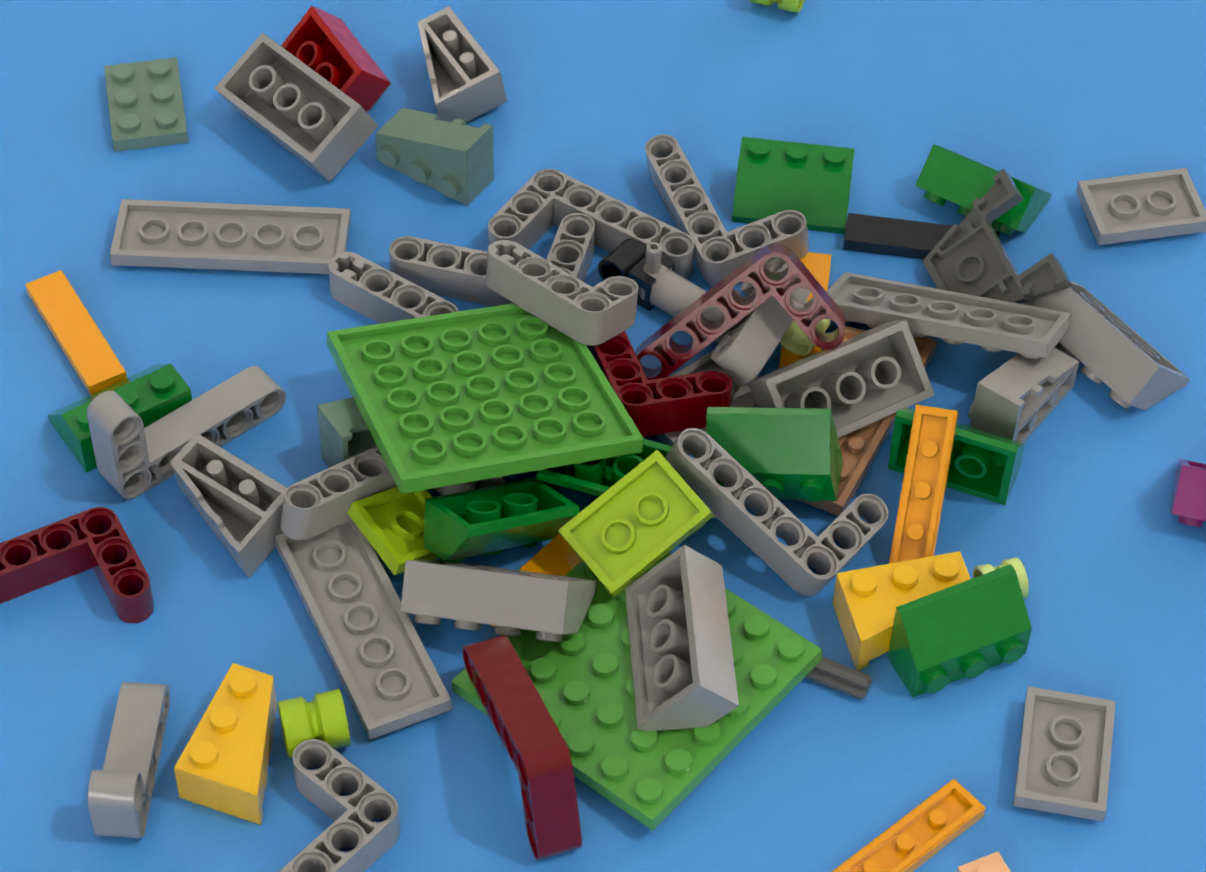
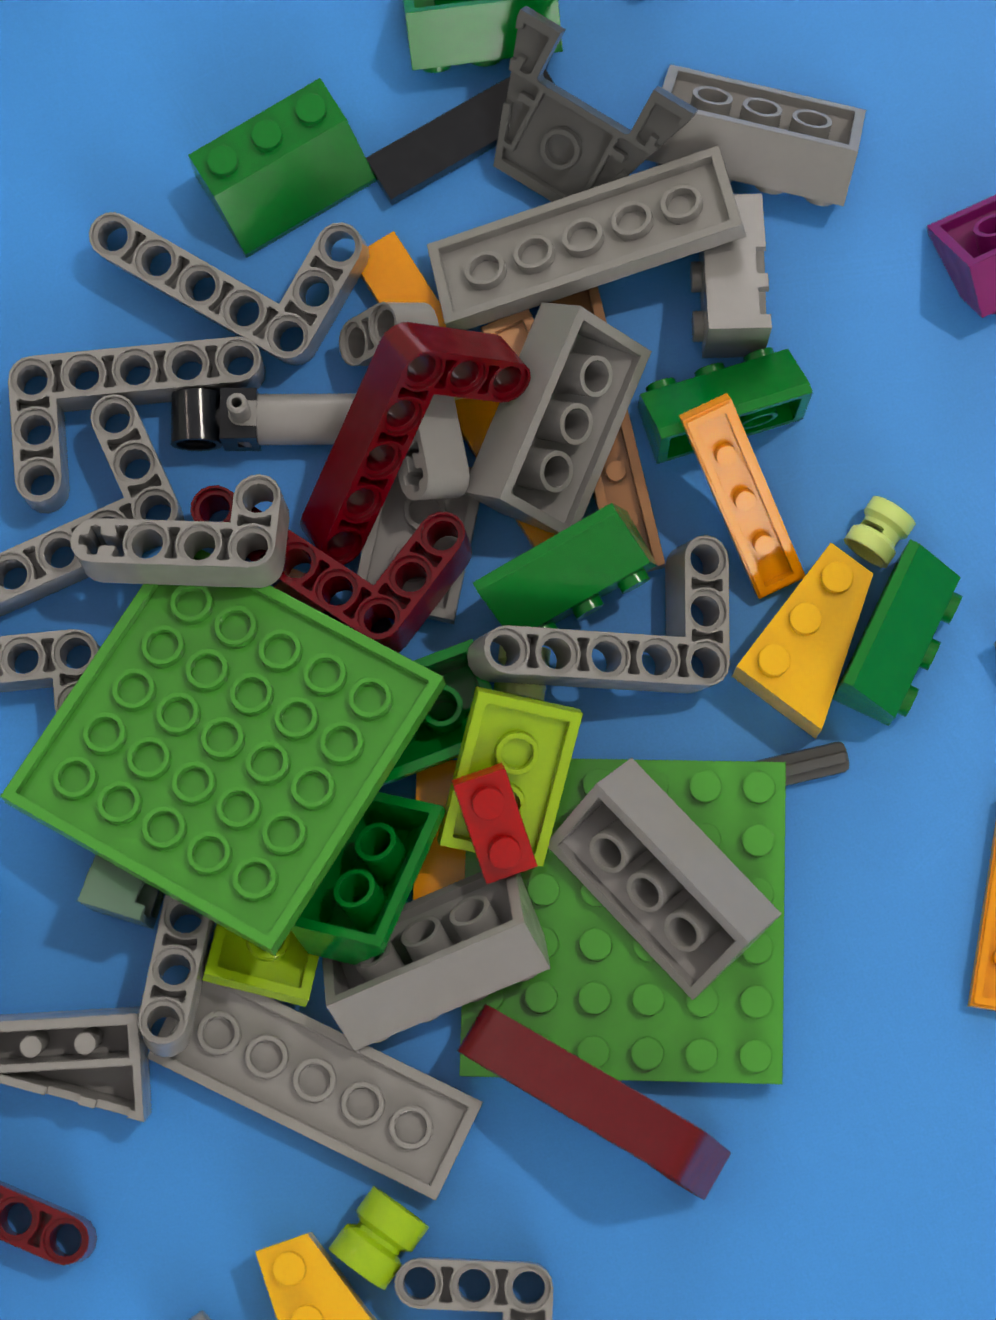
camera: 35 degrees left, 30 degrees up
(602, 536) = (494, 823): none -> red plate

